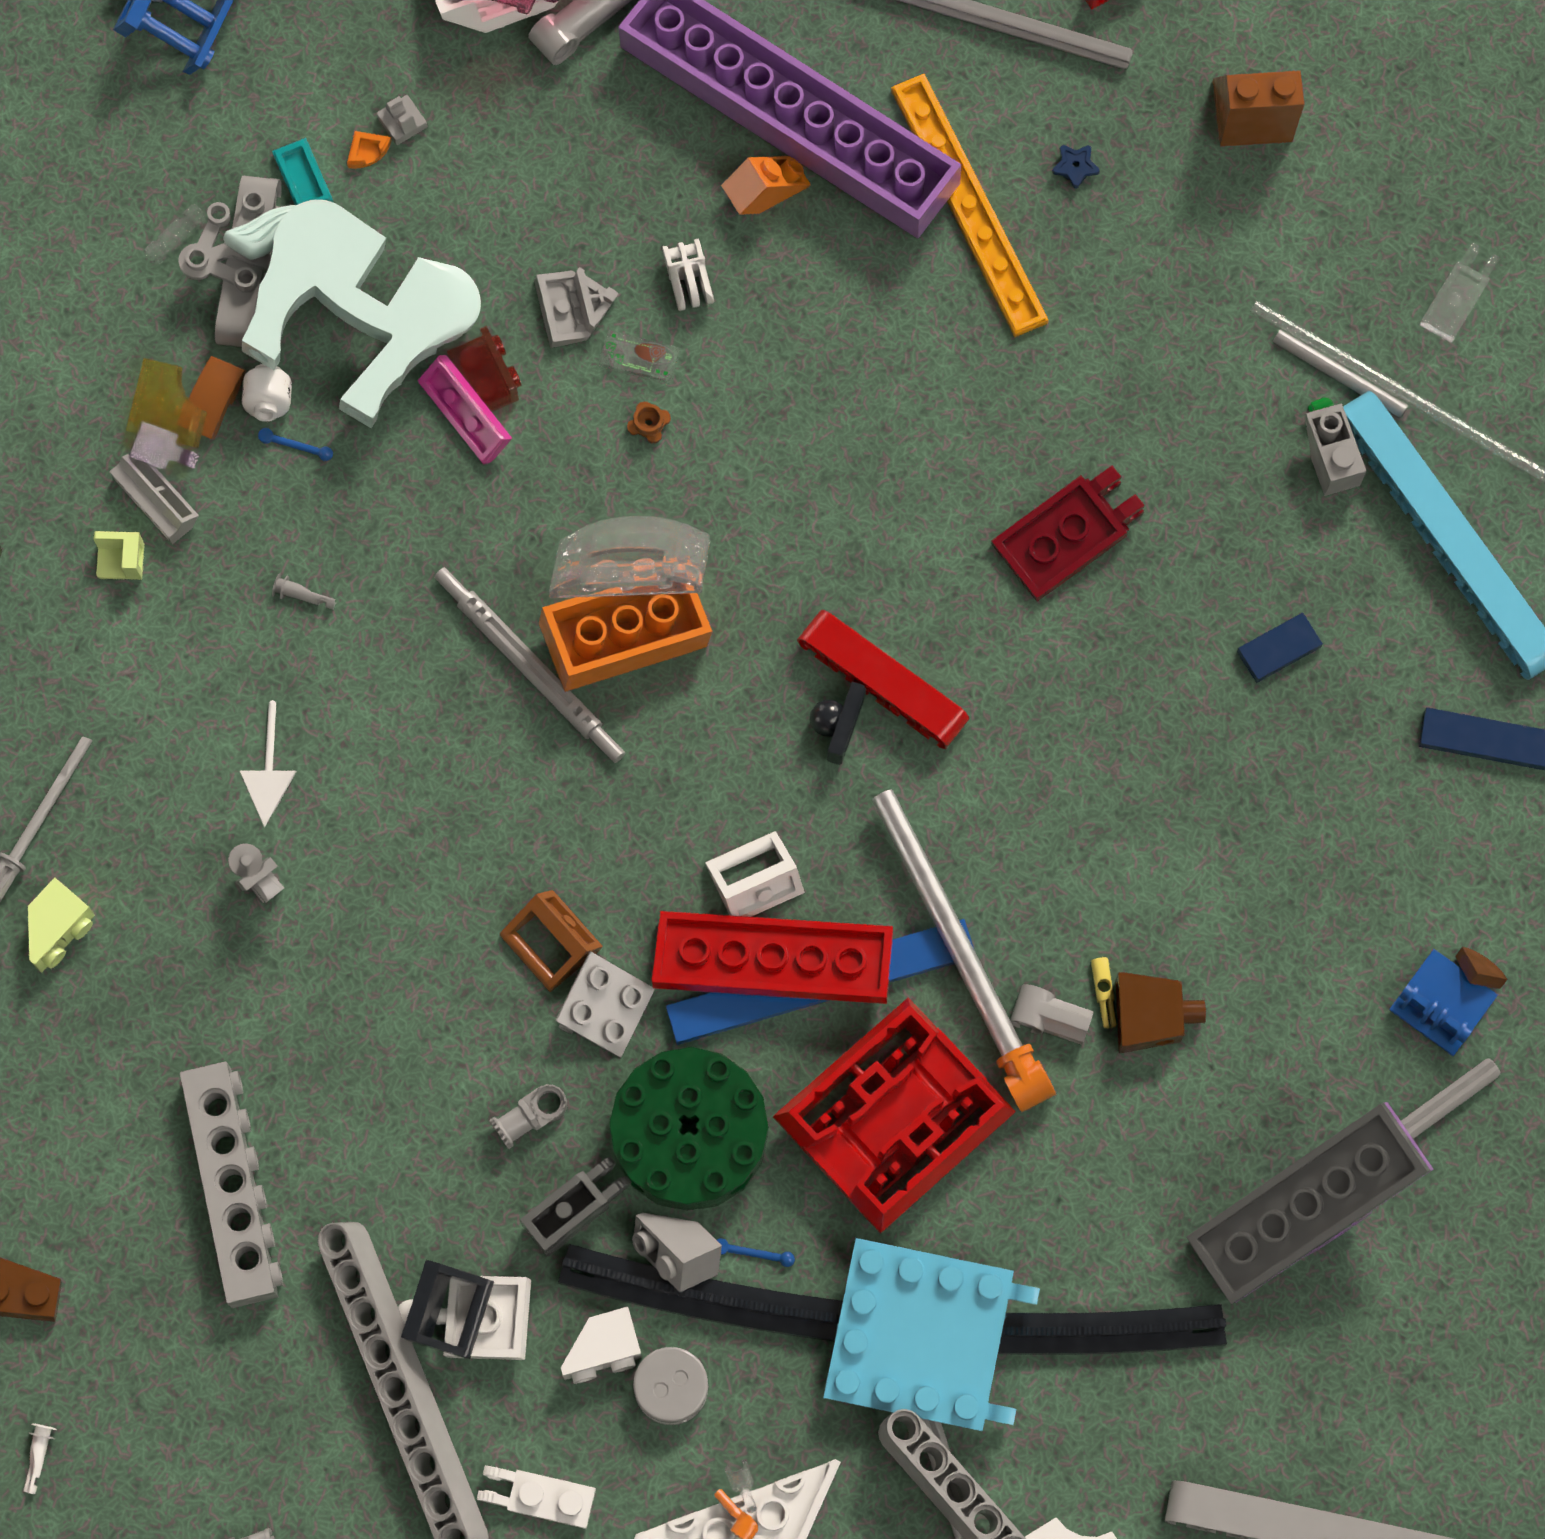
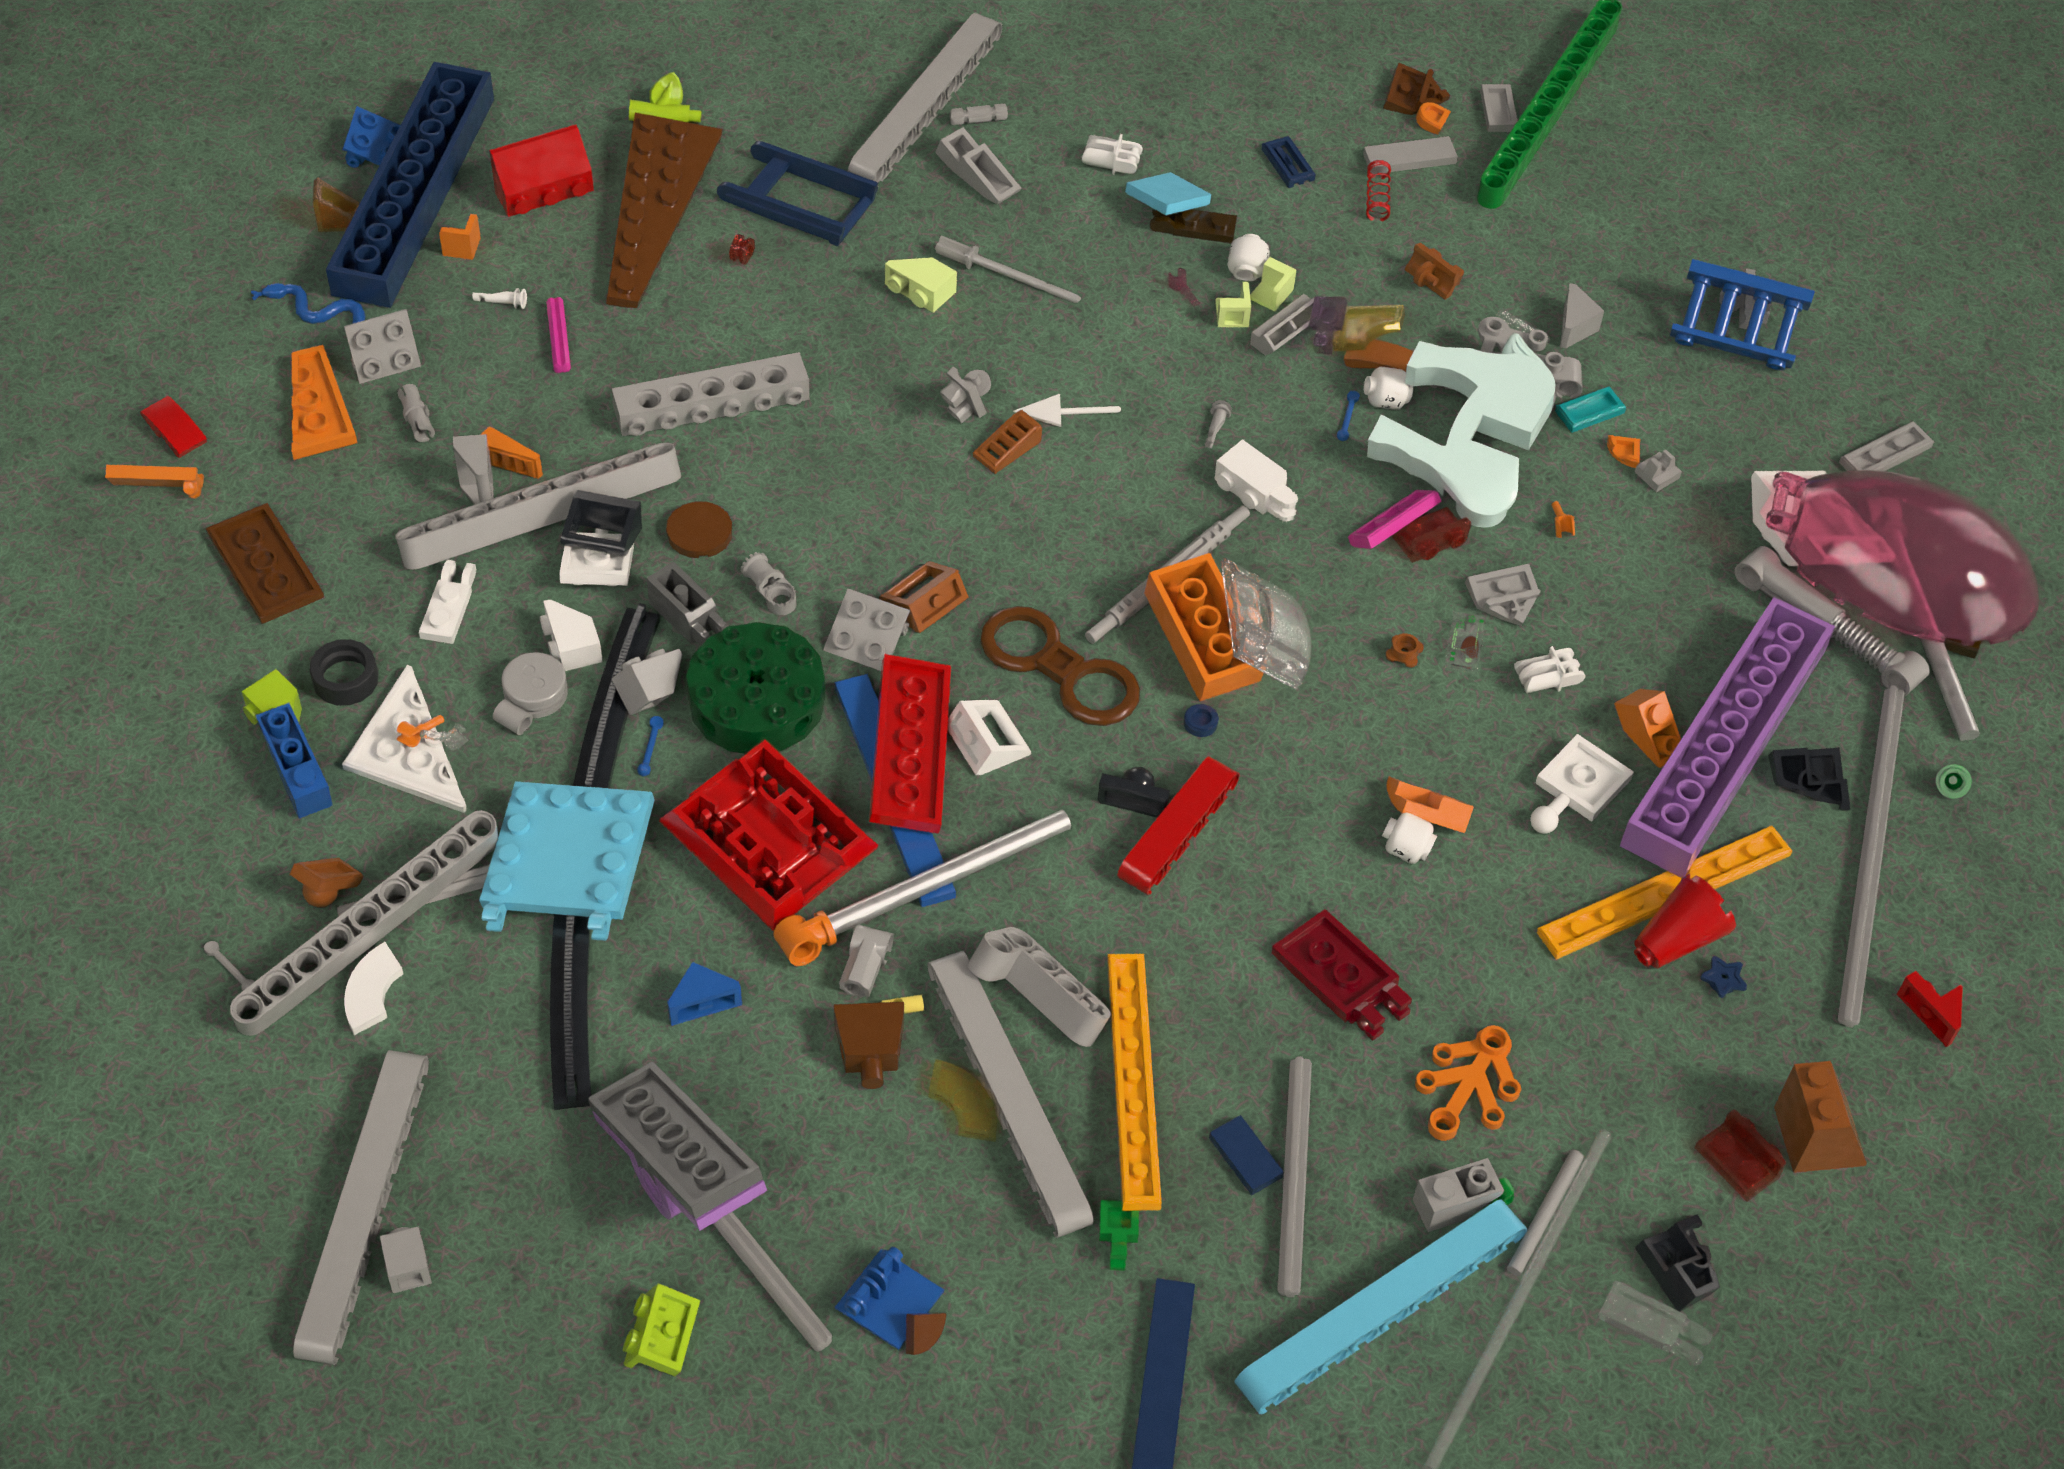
camera: 85 degrees right, 20 degrees down
(41, 530) = (1248, 257): none -> white head
(77, 613) = (1180, 284): none -> clear pink hand
(78, 320) = (1433, 271): none -> dark orange hips
(88, 506) = (1275, 285): none -> yellowish green panel
(107, 1380) = (558, 335): none -> dark pink axle
(163, 168) = (1580, 317): none -> light grey slope
(299, 809) = (1019, 425): none -> dark orange slope
(310, 1438) = (512, 455): none -> orange slope
(357, 1465) = (474, 467): none -> light grey tile
(402, 554) = (1256, 481): none -> white hinge
(437, 1199) = (699, 529): none -> reddish brown tile
(472, 230) = (1563, 522): none -> orange hand
(654, 794) = (1060, 665): none -> reddish brown bar
(714, 1410) = (512, 717): none -> light grey hinge
(737, 646) = (1201, 720): none -> dark blue tile
(827, 50) = (1811, 774): none -> black slope
(832, 263) = (1580, 779): none -> white plate
(863, 422) = (1429, 805): none -> orange slope
(908, 444) = (1409, 838): none -> white head
(1026, 192) = (1684, 923): none -> red cone
(1088, 829) = (1042, 980): none -> light grey beam
(1095, 1189) = (702, 994): none -> blue slope
(1194, 421) = (1471, 1078): none -> orange plant
(1198, 748) = (1133, 1083): none -> light orange tile
(1209, 873) = (1012, 1094): none -> light grey beam
(1217, 918) = (966, 1099): none -> clear yellow tile
(1281, 184) = (1742, 1155): none -> clear red bracket
(1303, 602) = (1294, 1178): none -> light grey axle
(1363, 775) = (1119, 1229): none -> green plate
(1403, 255) = (1688, 1271): none -> black slope
(1412, 1488) = (405, 1259): none -> light grey brick
(1486, 1227) = (661, 1329): none -> lime bracket

